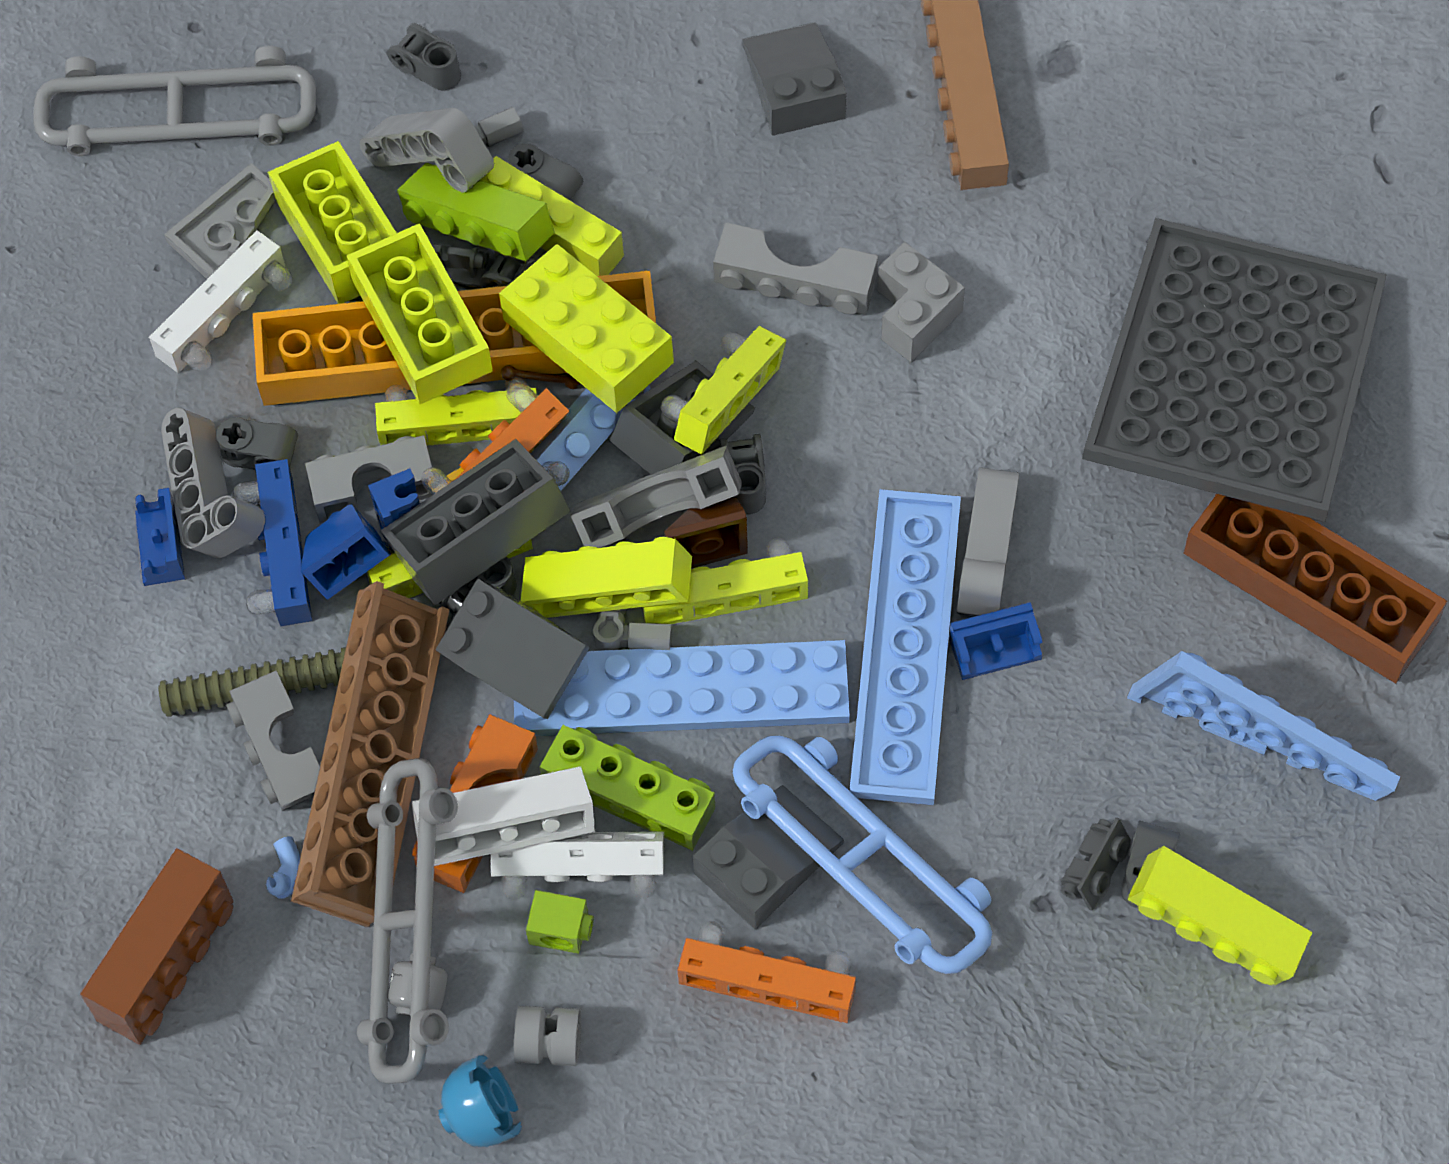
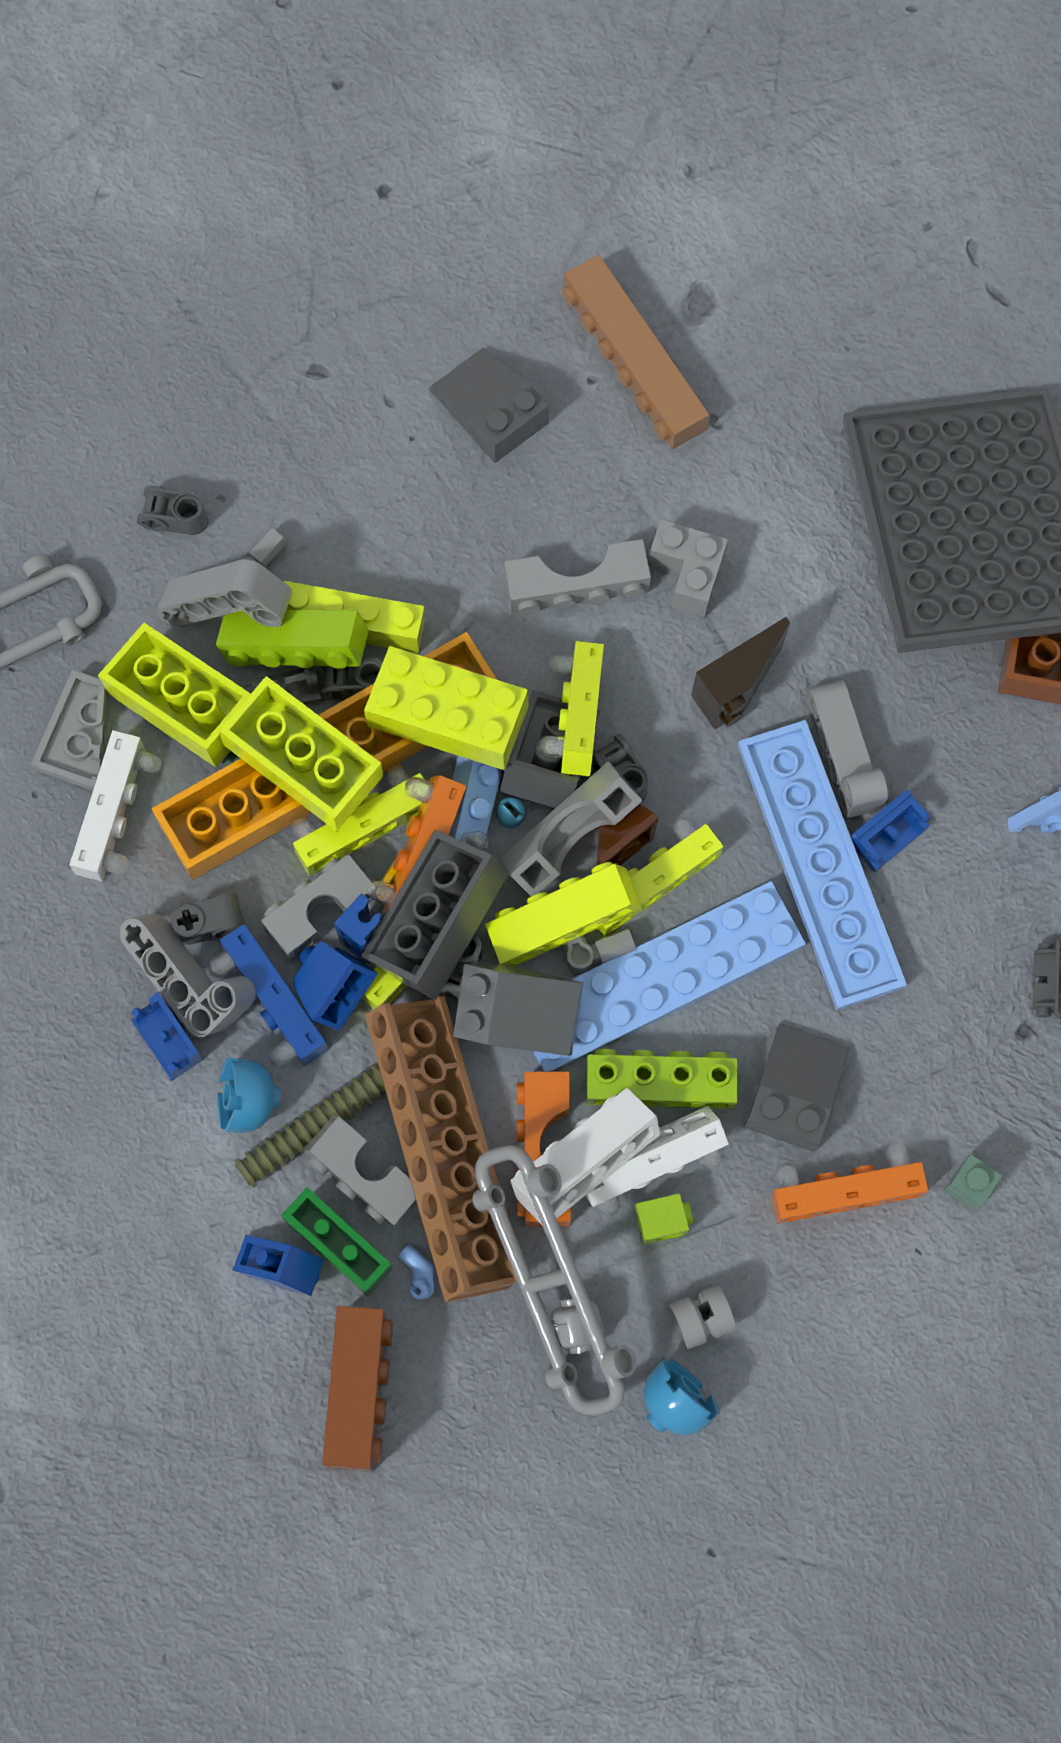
camera: 30 degrees left, 10 degrees up
(152, 800) = (278, 1264): none -> blue slope
(206, 624) = (246, 1096): none -> dark azure cylinder
(217, 800) = (337, 1242): none -> green brick
(509, 373) = (389, 768): reddish brown hinge -> none
(546, 169) = (328, 574): dark grey piece -> none
(605, 472) = (505, 817): none -> medium azure hinge
(815, 760) = (970, 1055): light blue bar -> none
(902, 1026) = (972, 1183): none -> sand green brick
(913, 421) = (731, 681): none -> dark brown slope

